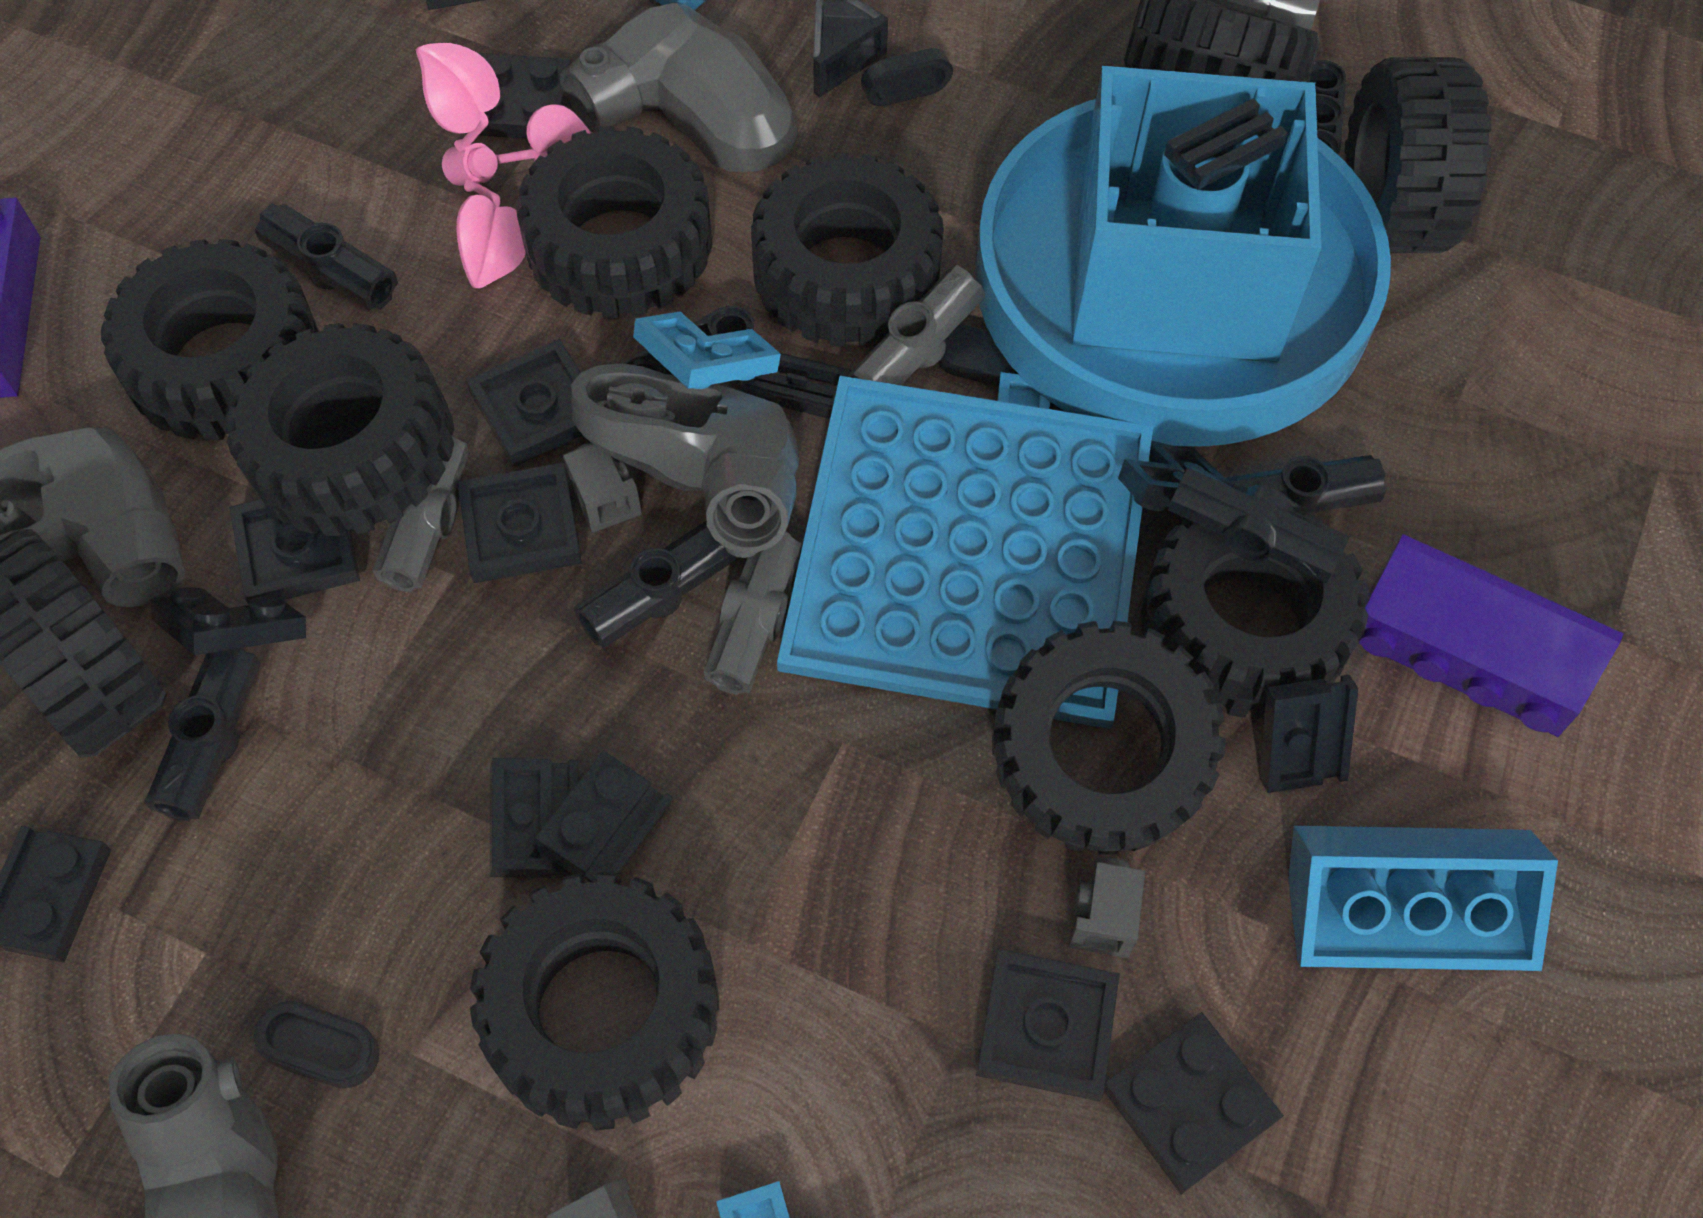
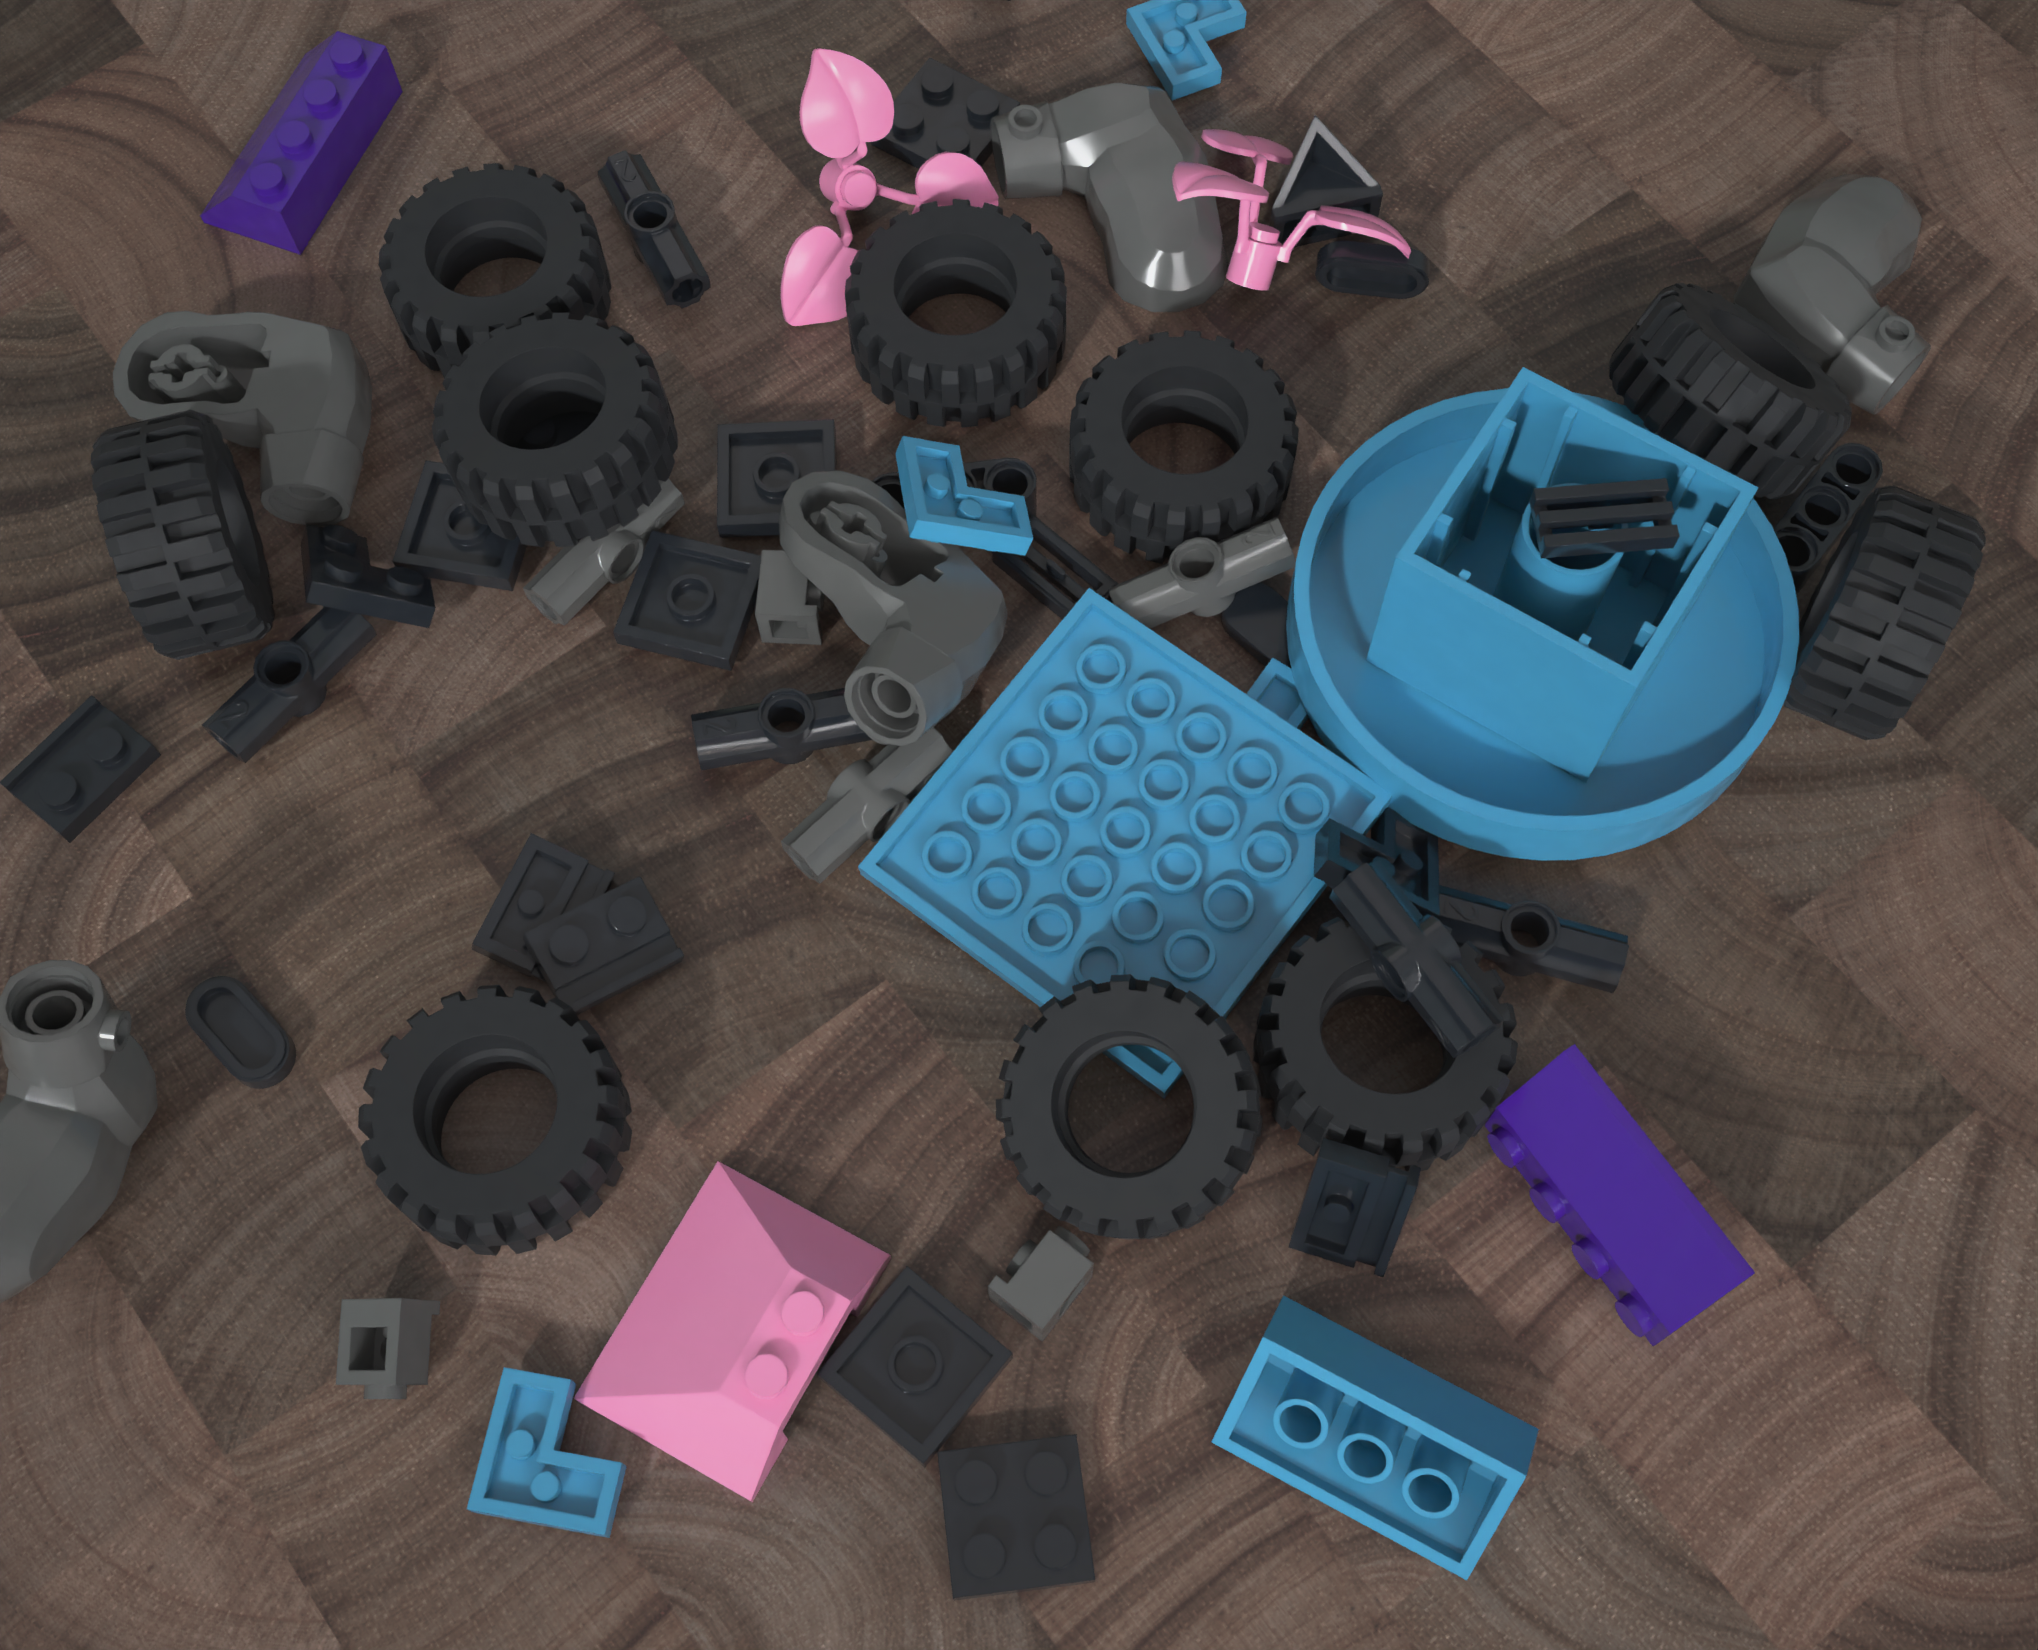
camera: 30 degrees right, 5 degrees up
(815, 90) = (1257, 243): none -> bright pink plant
(884, 1076) = (731, 1329): none -> bright pink slope

